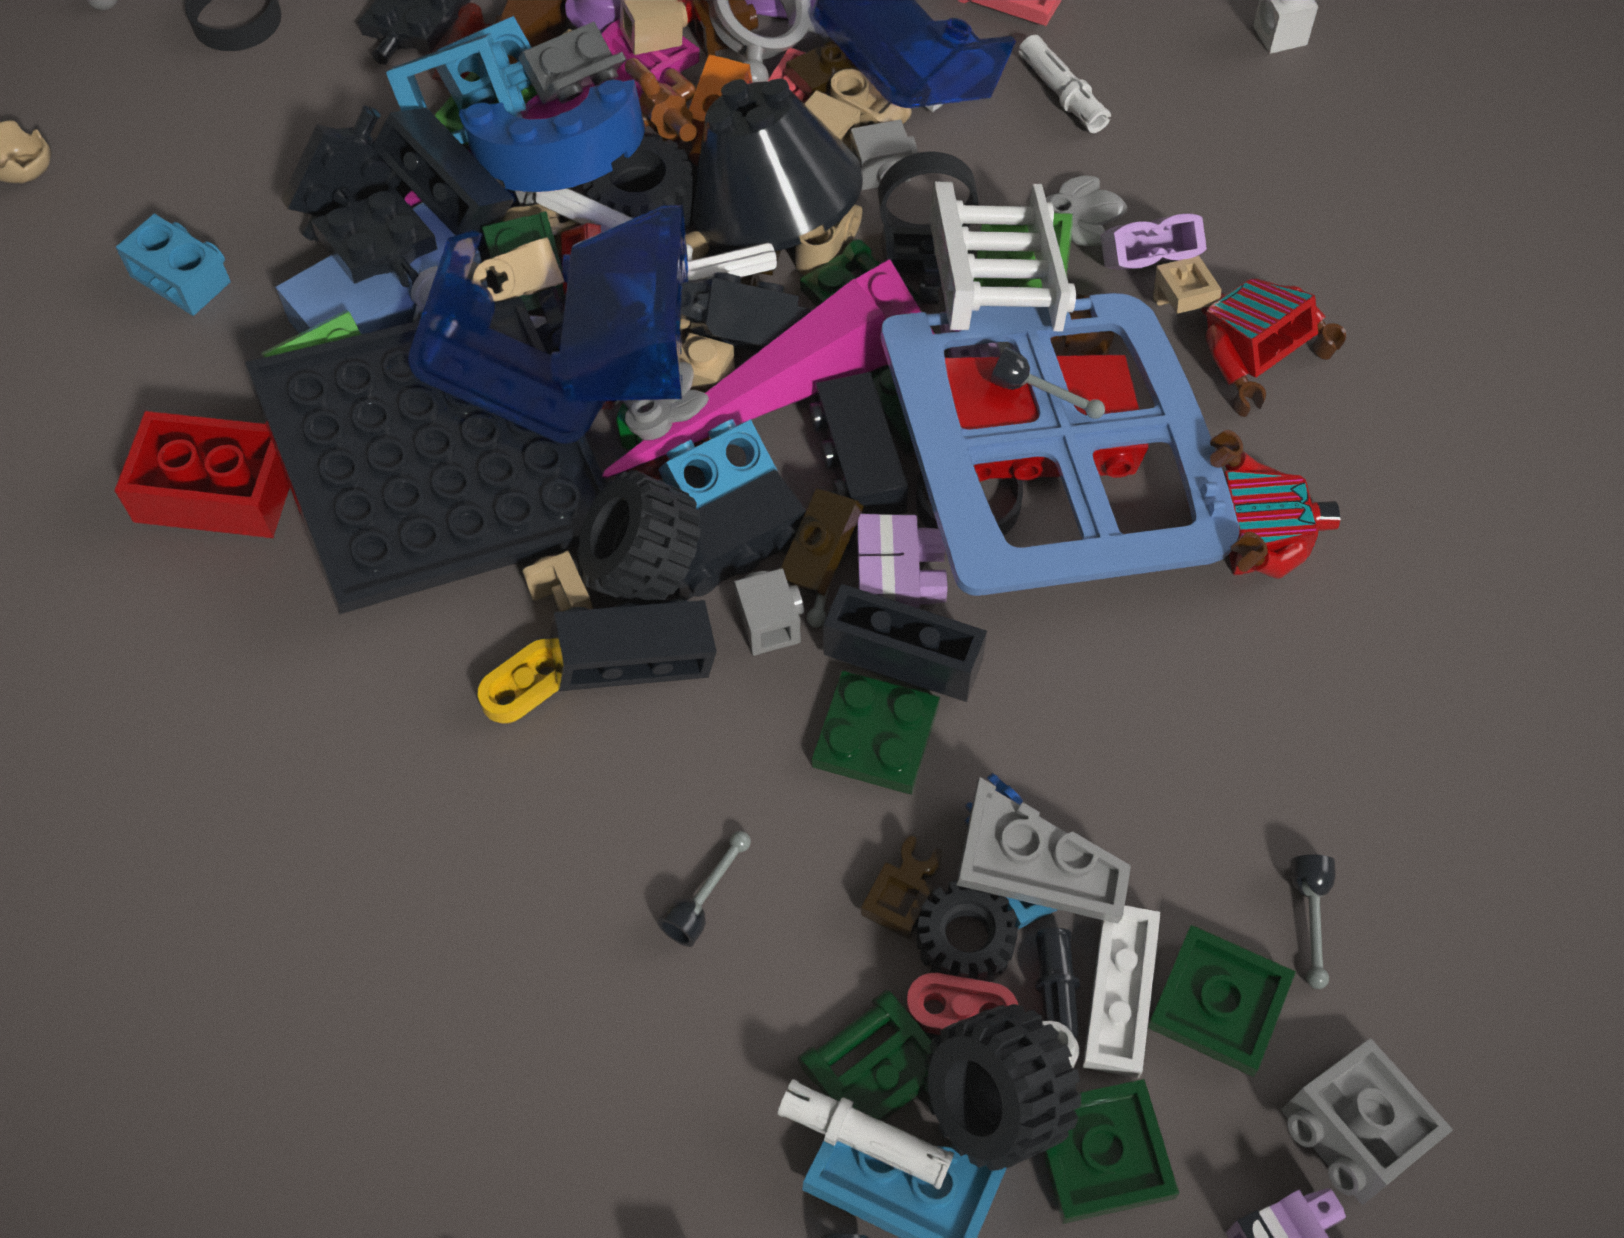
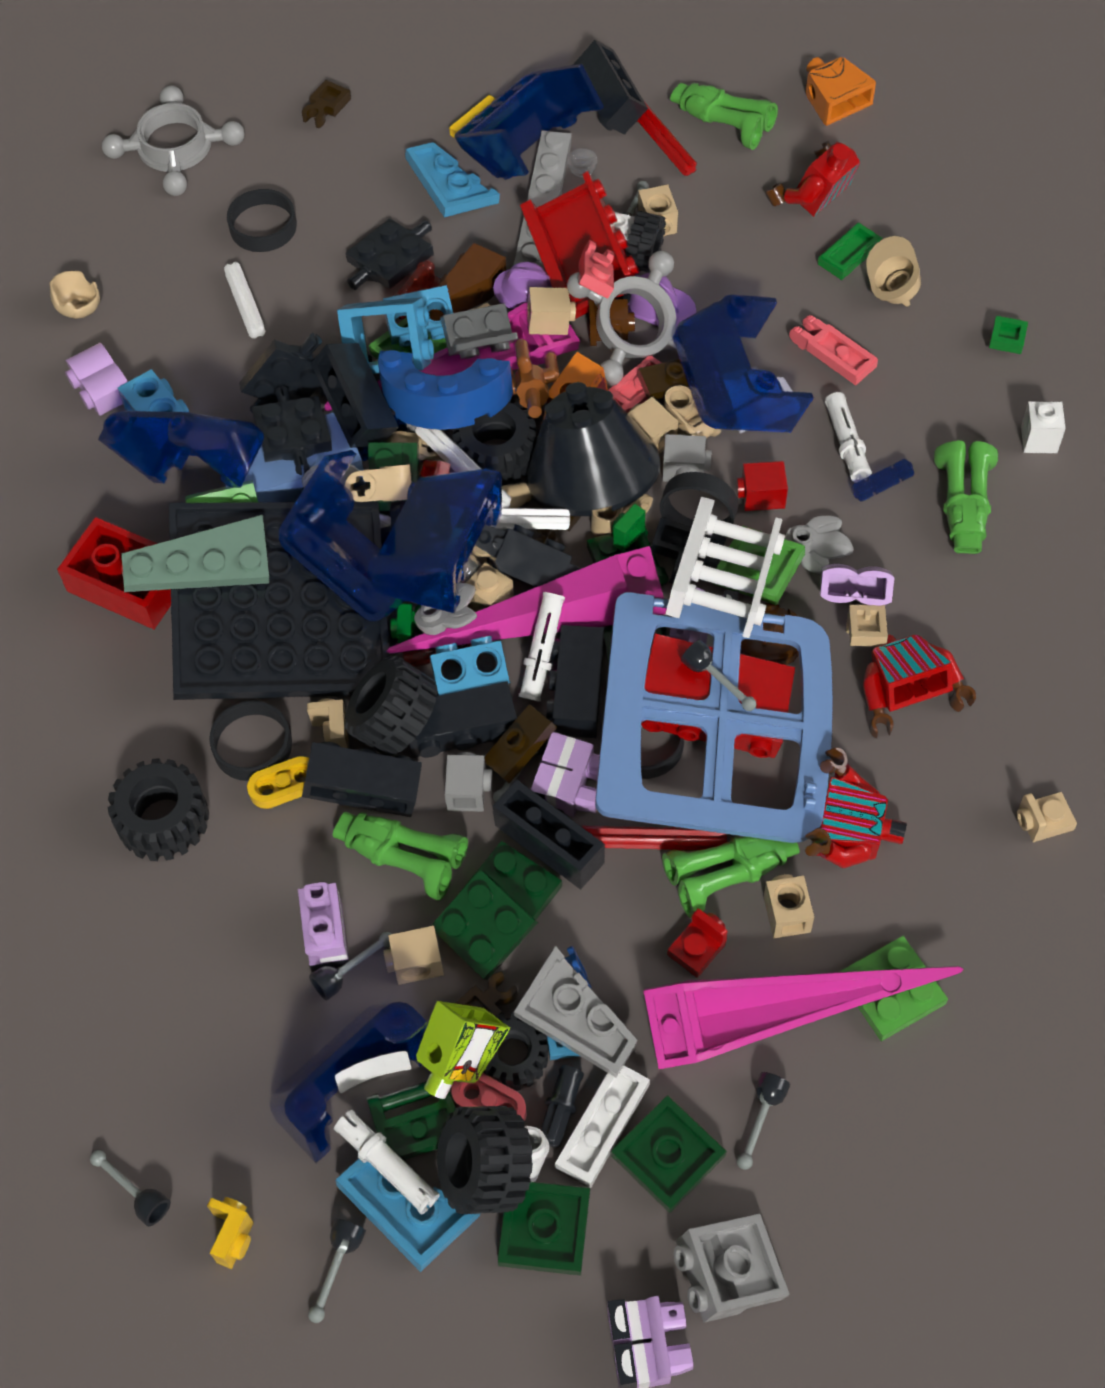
camera: 20 degrees right, 0 degrees up
(80, 246) = (97, 378): none -> lavender brick
(207, 285) = (165, 440): none -> clear blue windscreen
(246, 108) = (244, 300): none -> white axle
(321, 420) = (204, 559): none -> sand green wing
(352, 731) = (147, 786): none -> black tyre
(441, 601) = (245, 709): none -> black tyre
(608, 442) = (403, 626): none -> green plate
(653, 849) = (323, 925): none -> lavender hips
(683, 717) = (380, 842): none -> bright green piece
(718, 1088) = (301, 1100): none -> clear blue windscreen
(789, 849) = (414, 955): none -> tan brick
(791, 1015) = (371, 1069): none -> white sticker
(801, 415) = (551, 604): none -> white pin
(851, 246) = (628, 527): none -> green plate
(865, 781) = (484, 924): none -> dark green plate
(906, 947) = (458, 1045): none -> lime torso
(994, 158) = (763, 486): none -> red brick
(1046, 606) = (656, 837): none -> red axle
(1125, 121) = (883, 480): none -> clear blue axle
(1144, 721) = (699, 942): none -> red bracket
(1158, 596) = (749, 858): none -> bright green piece
(1213, 803) = (719, 1015): none -> dark pink plate
(1234, 661) = (788, 920): none -> tan brick
(1238, 130) = (964, 512): none -> bright green piece
(1400, 705) = (904, 1008): none -> bright green plate
(1485, 448) = (1045, 816): none -> tan bracket

